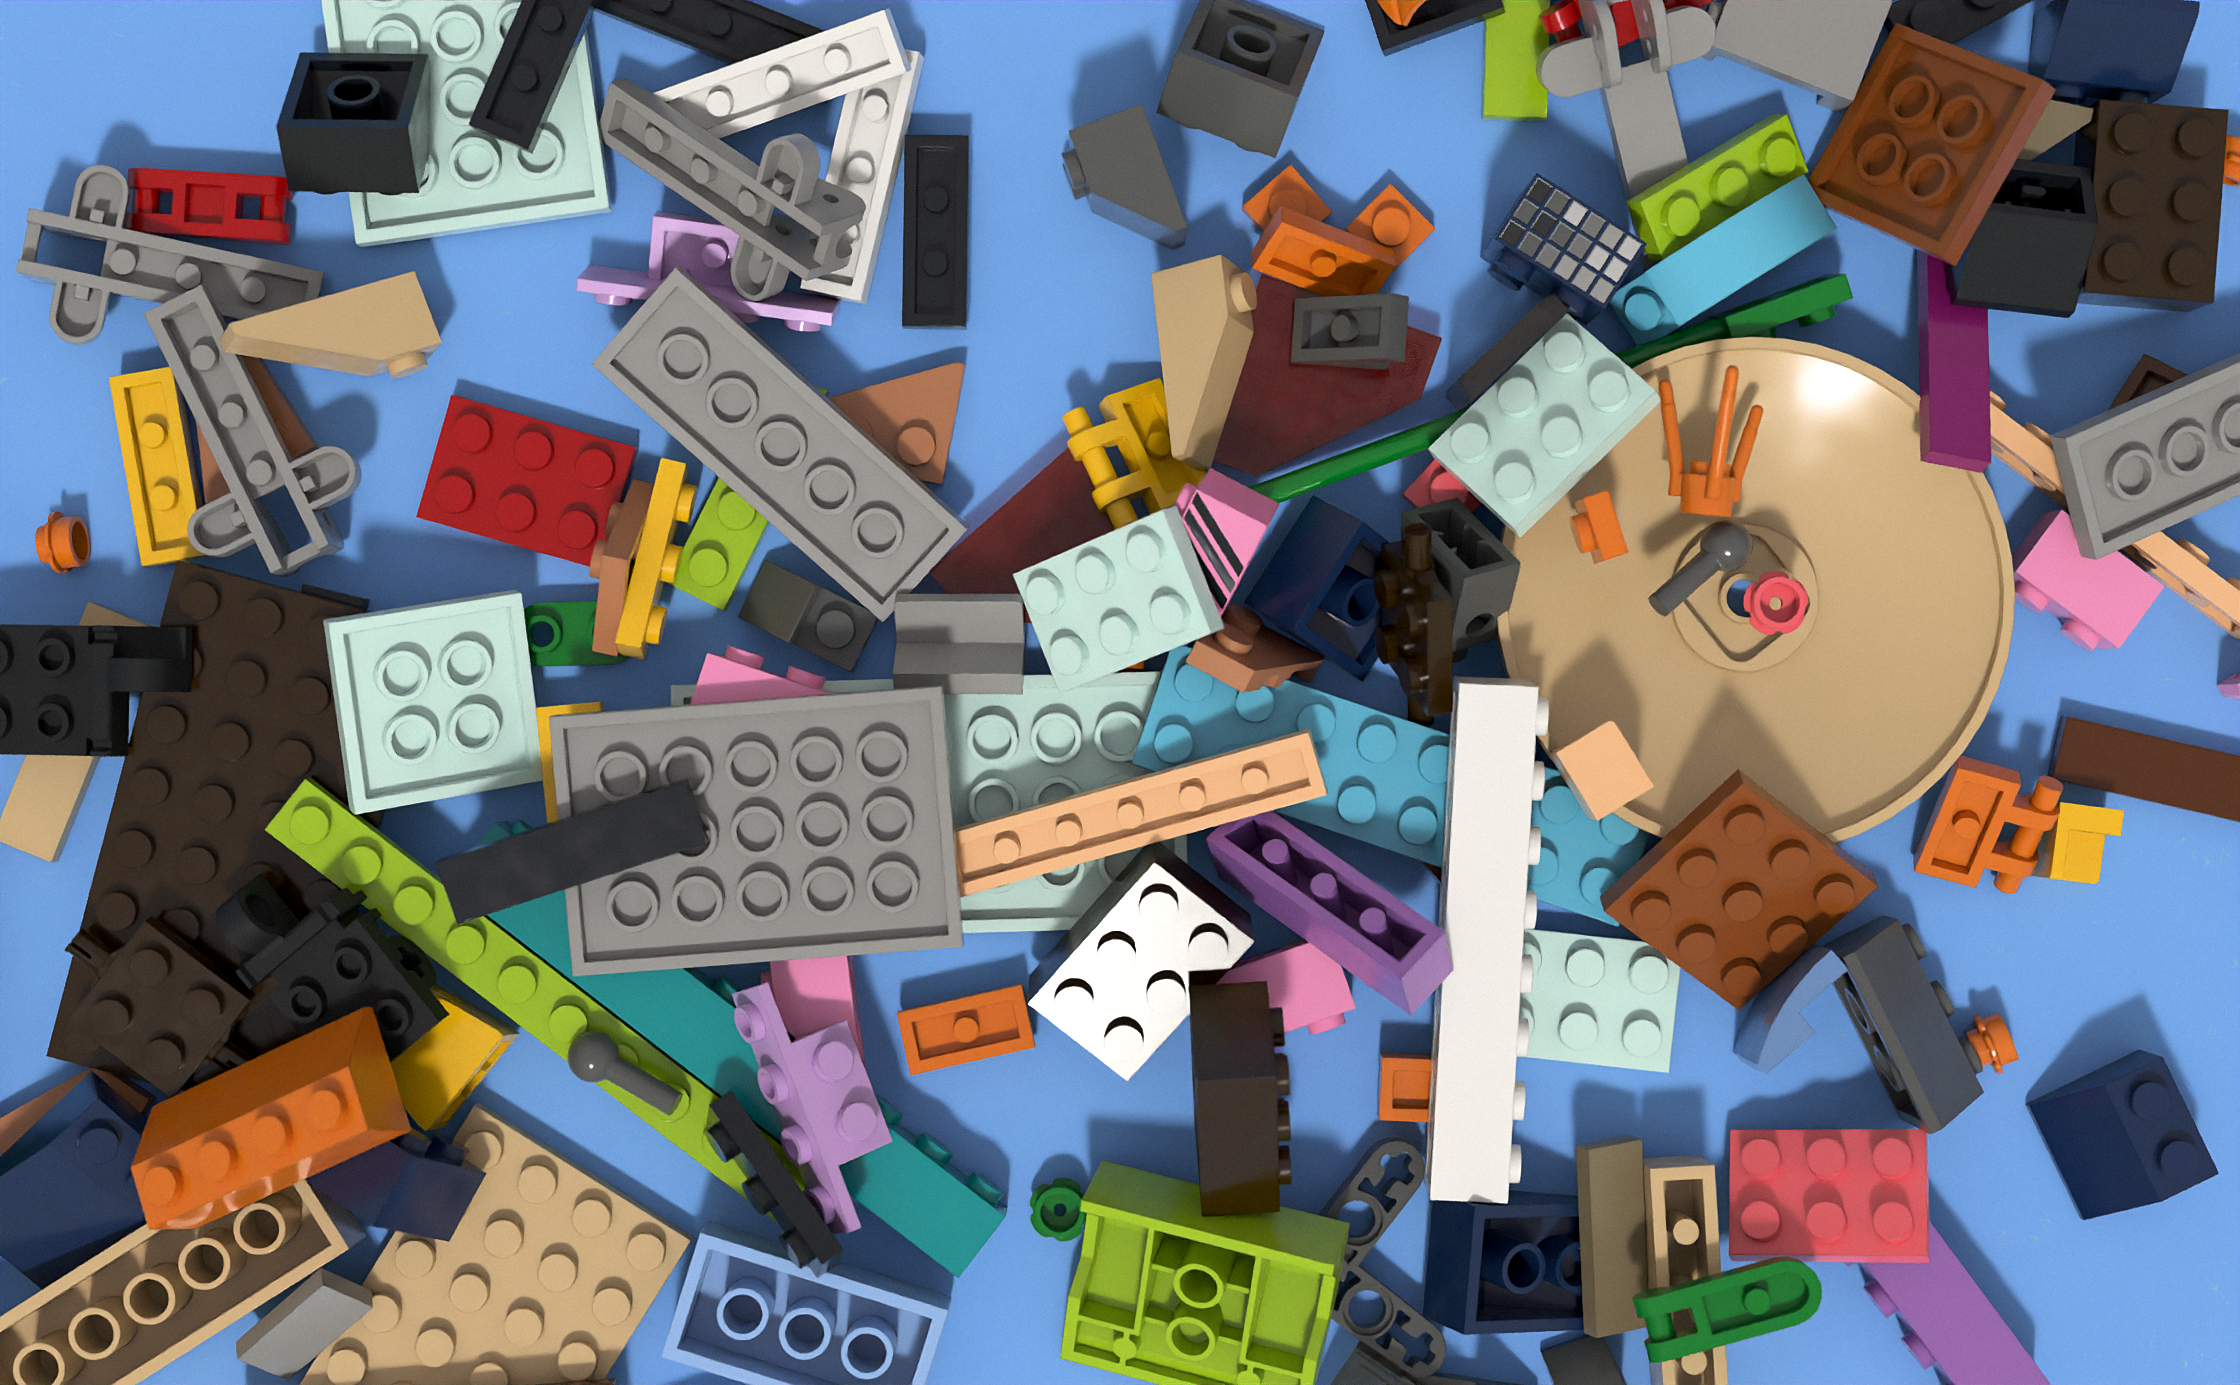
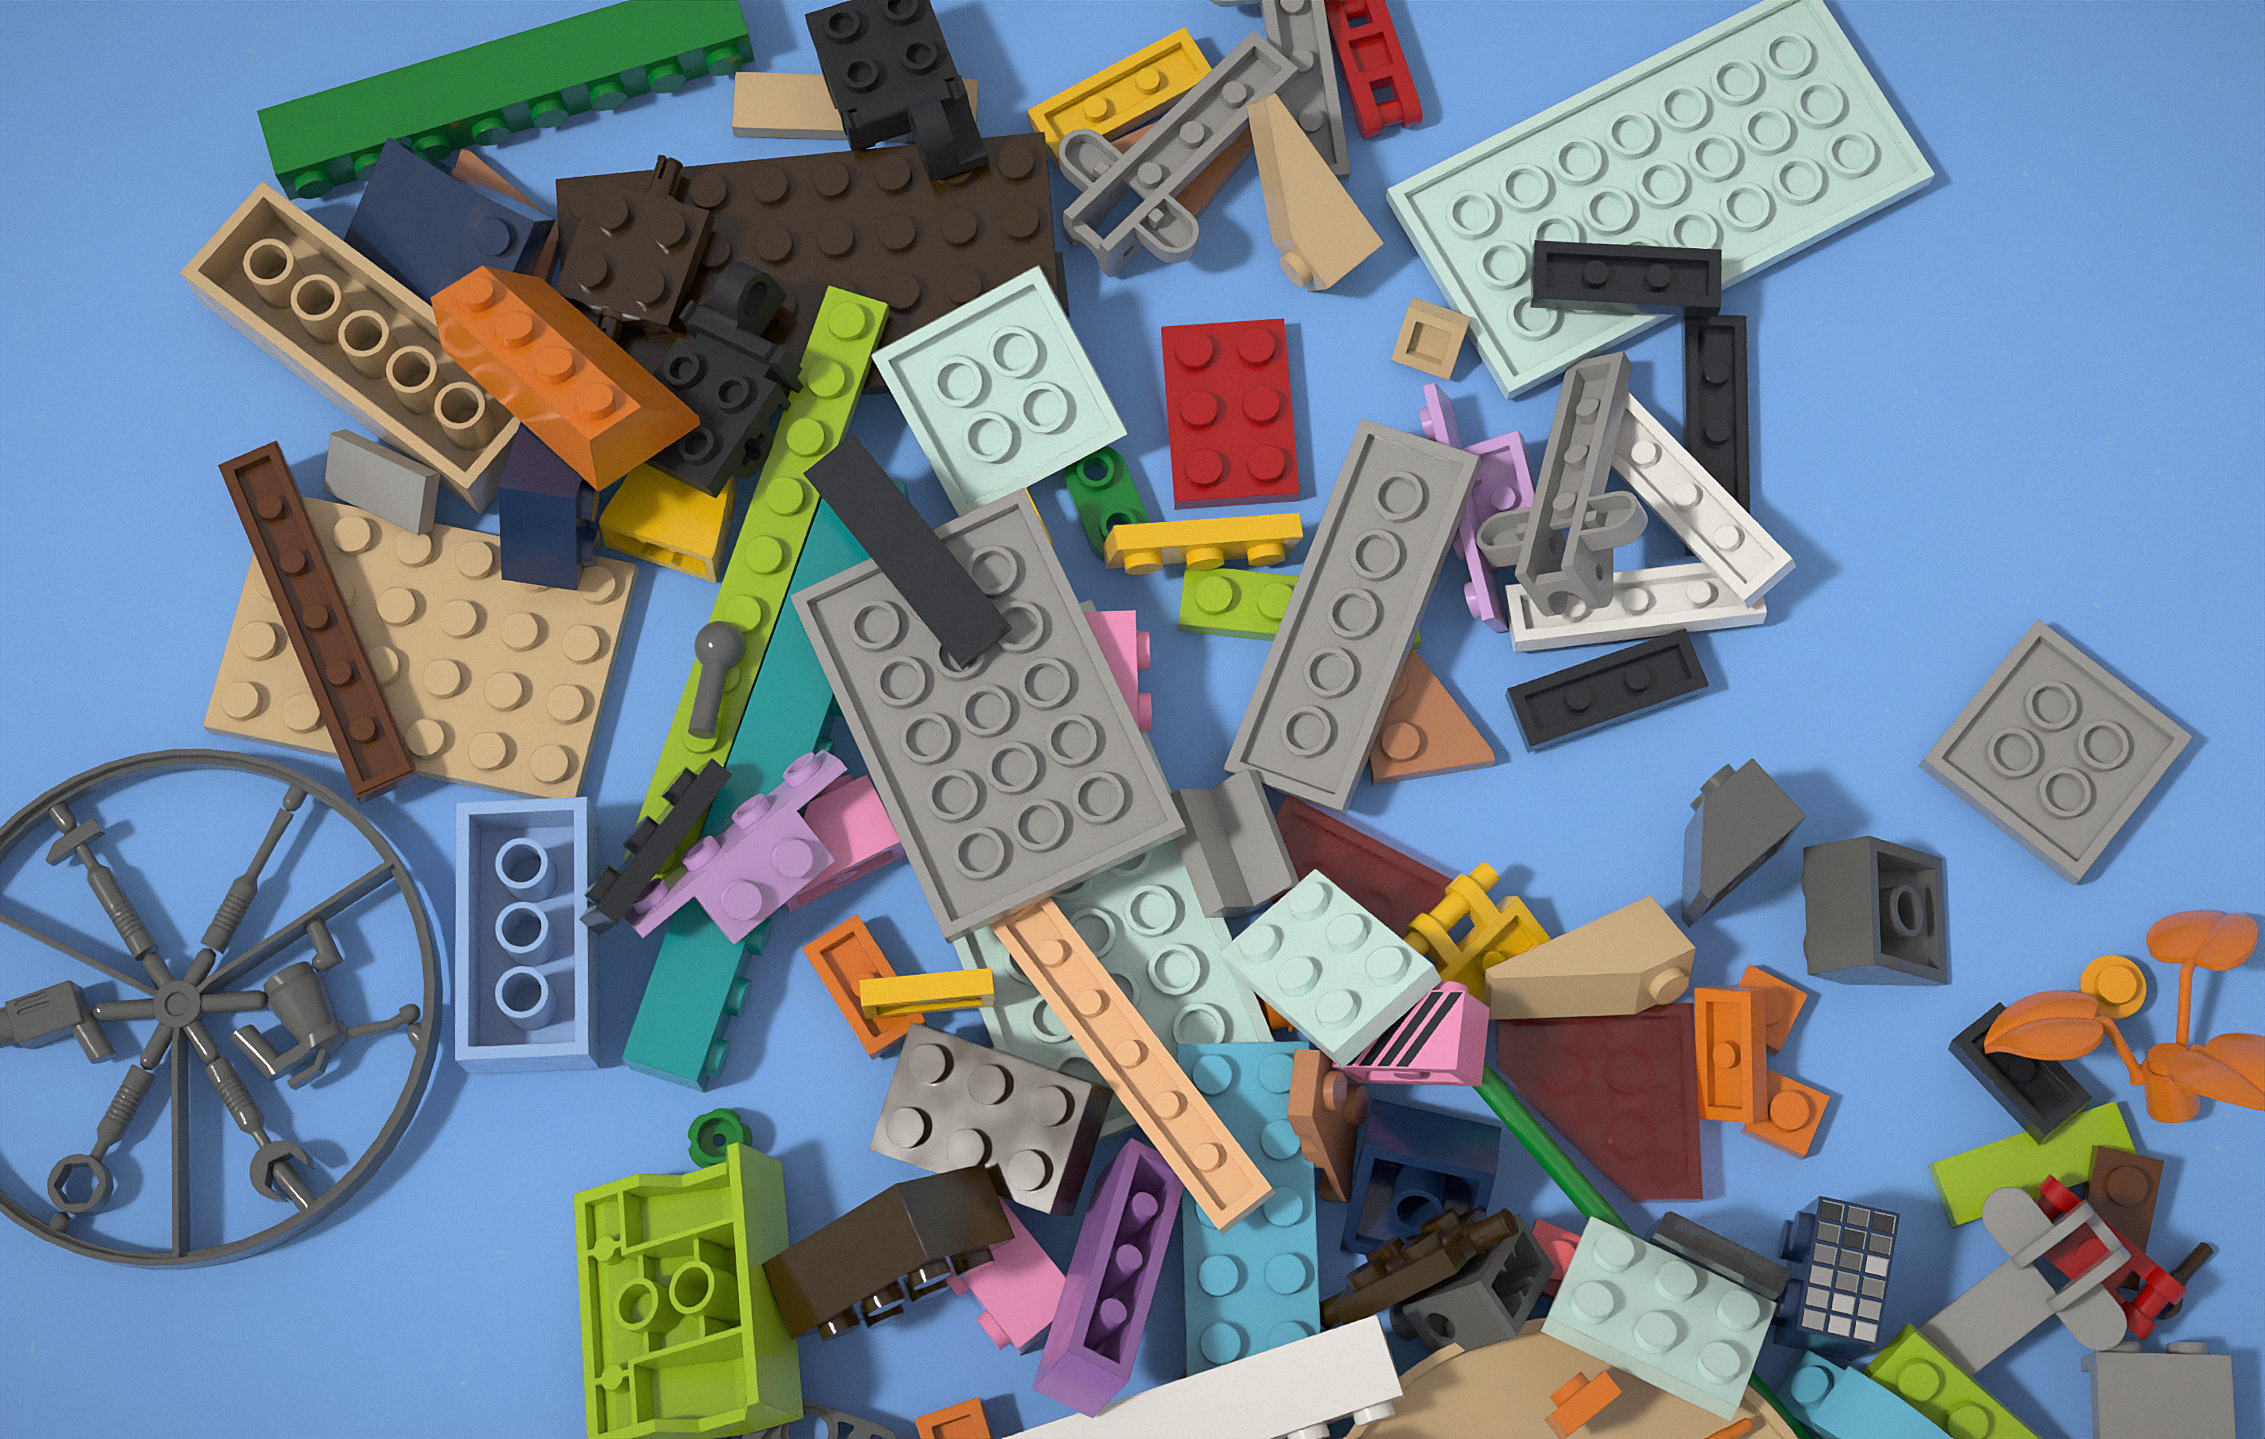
camera: 70 degrees right, 15 degrees down
(63, 542) = (1022, 41): orange plate -> none
(356, 123) = (1494, 147): black slope -> none
(525, 260) = (1431, 338): none -> tan plate
(614, 562) = (1186, 499): nougat wing -> none
(808, 616) = (1202, 706): dark grey slope -> none
(1001, 976) = (927, 993): none -> yellow tile
(1350, 330) = (1673, 1100): dark grey slope -> none

